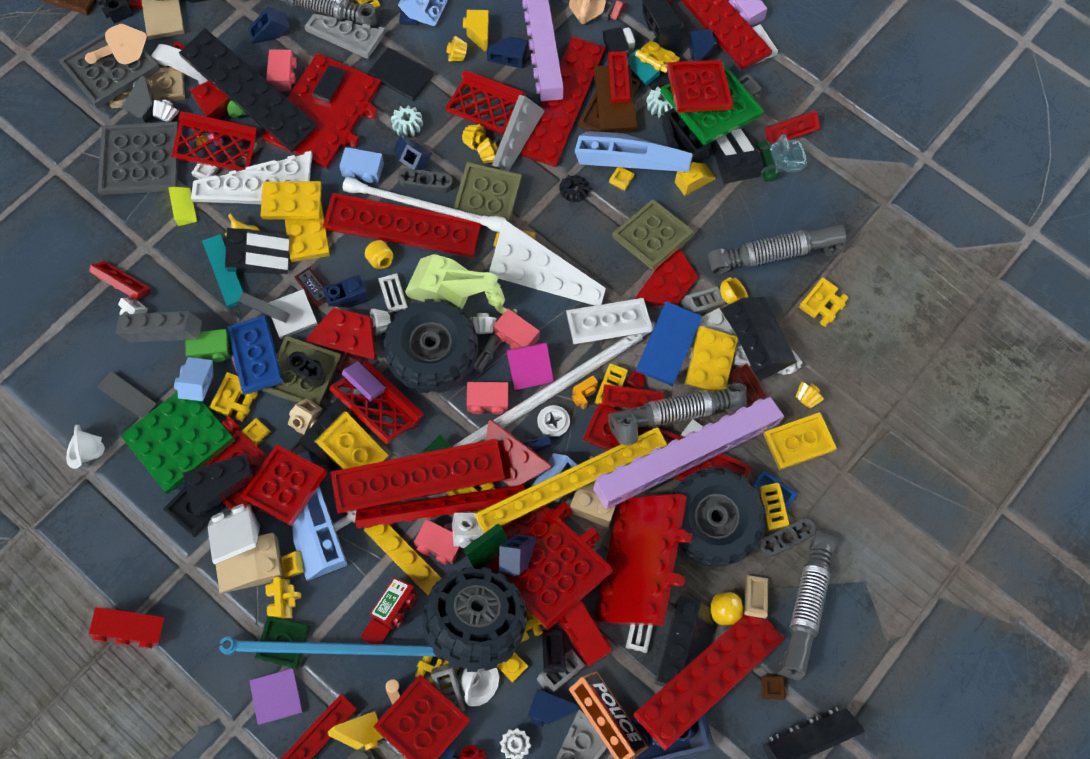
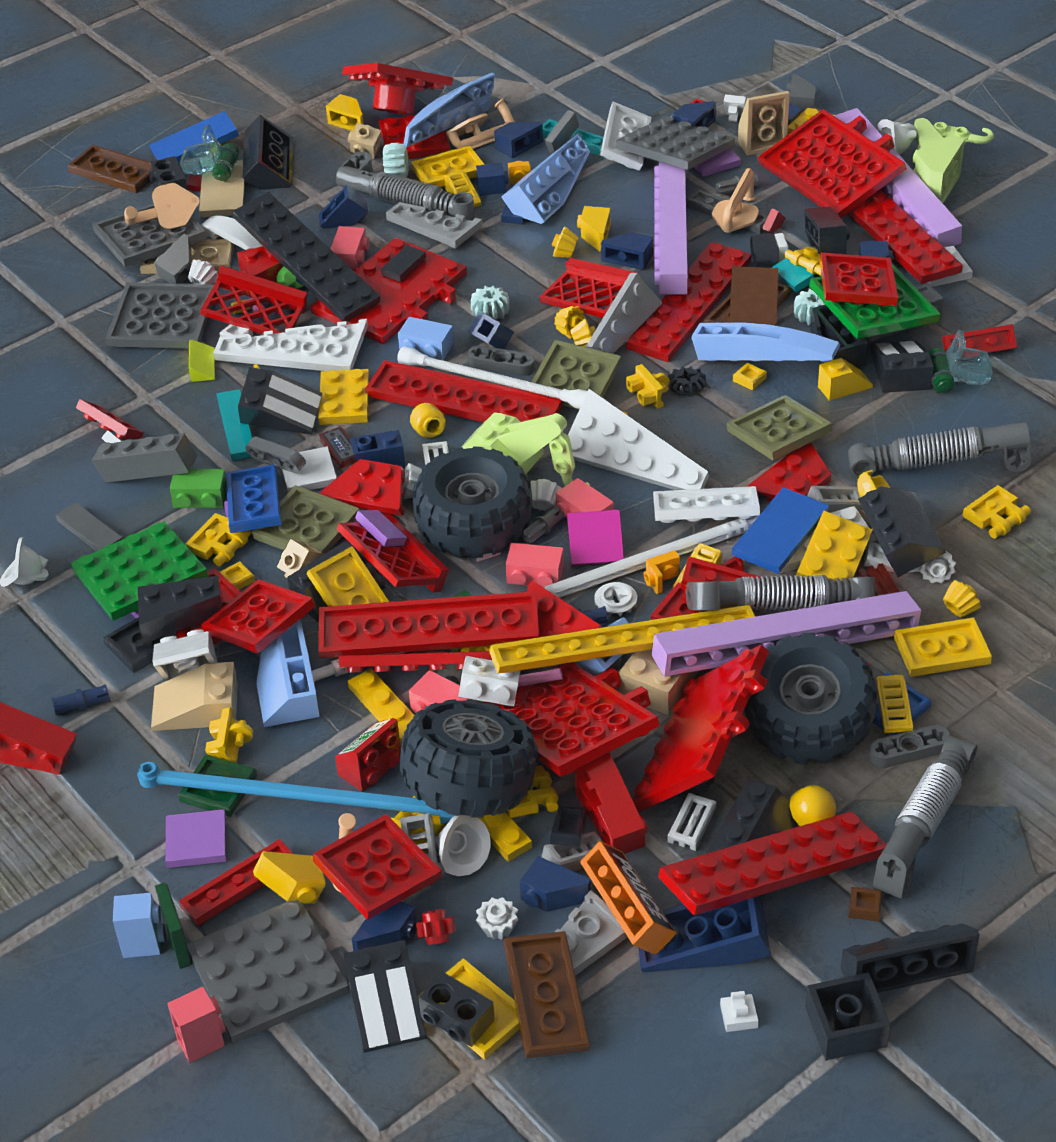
camera: 15 degrees right, 25 degrees down
(158, 573) = (80, 699): none -> dark blue pin
(194, 379) = (174, 511): light blue brick -> none
(230, 425) = (208, 561): red bush -> none
(291, 200) = (332, 360): yellow plate -> none
(292, 564) = (249, 705): yellow tile -> none
(303, 370) = (312, 512): black beam -> none
(375, 633) = (341, 782): red tile -> none
(401, 74) = (493, 263): black tile -> none
(486, 547) = (503, 686): dark green tile -> none
(516, 554) = (536, 701): dark blue slope -> none
(548, 197) = (649, 386): none -> yellow hips
(618, 77) = (760, 275): red plate -> none
(756, 596) = (855, 798): tan tile -> none

